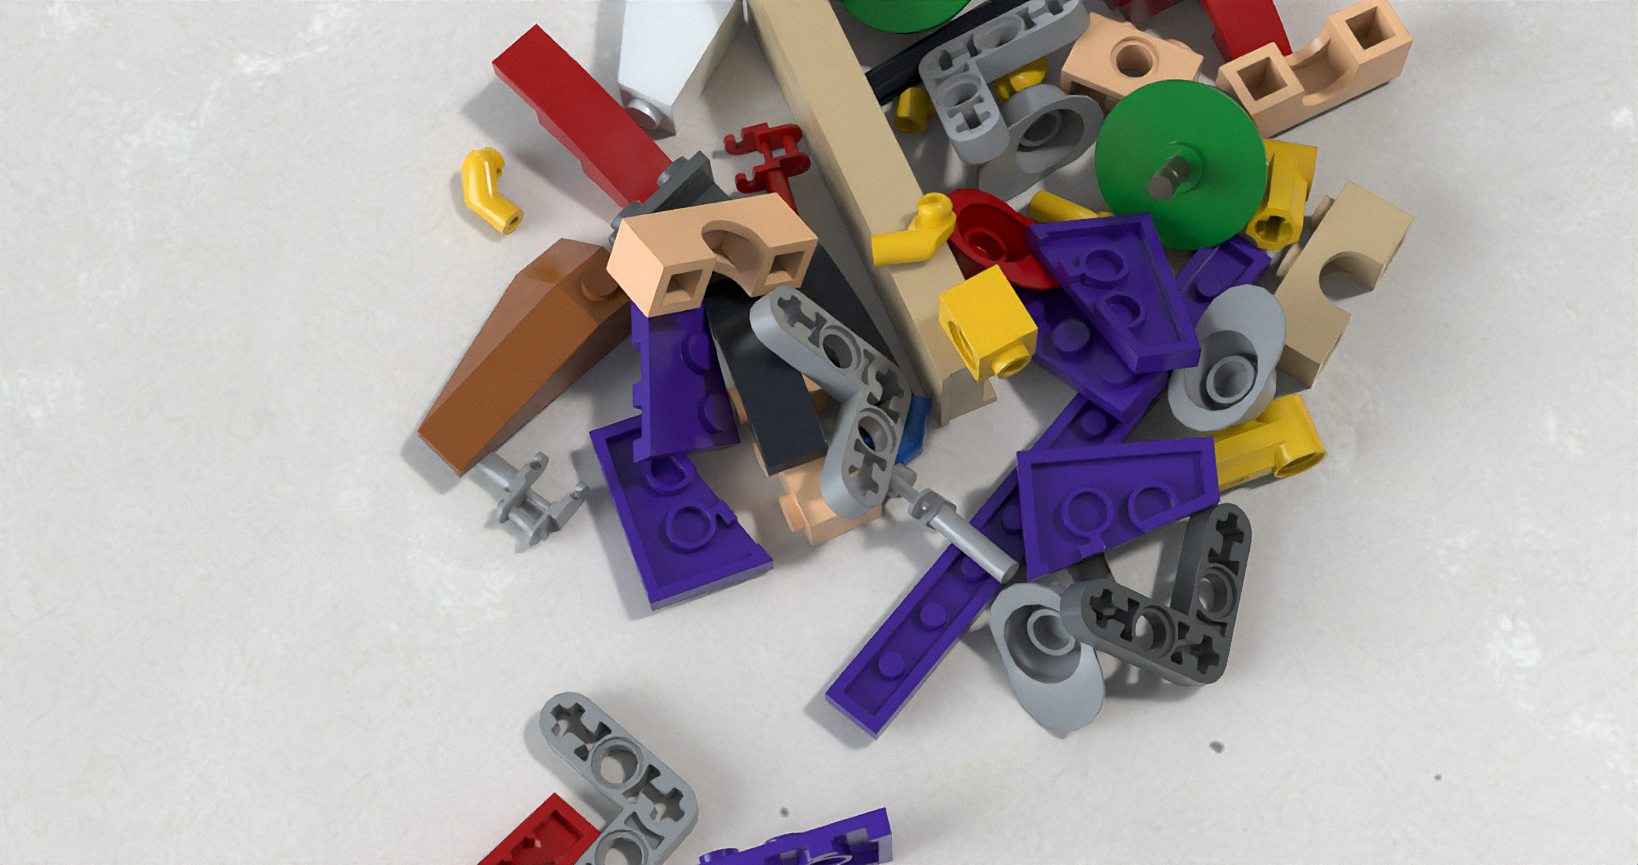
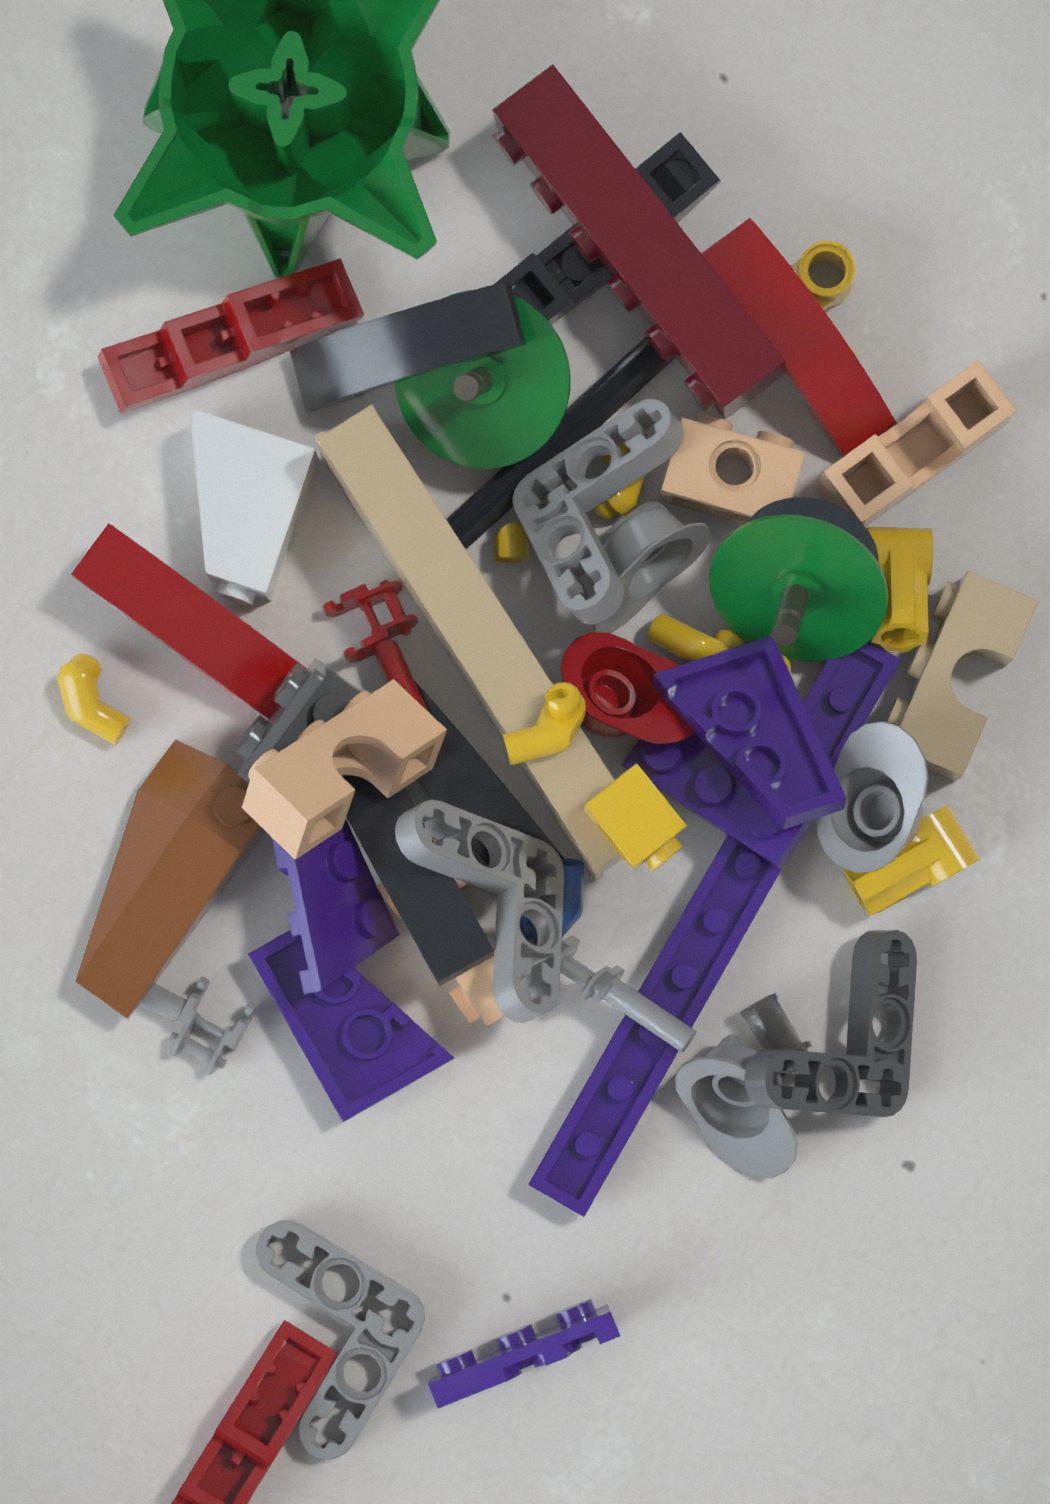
camera: 15 degrees left, 15 degrees up
(1107, 495) = (771, 946): dark purple wing -> none

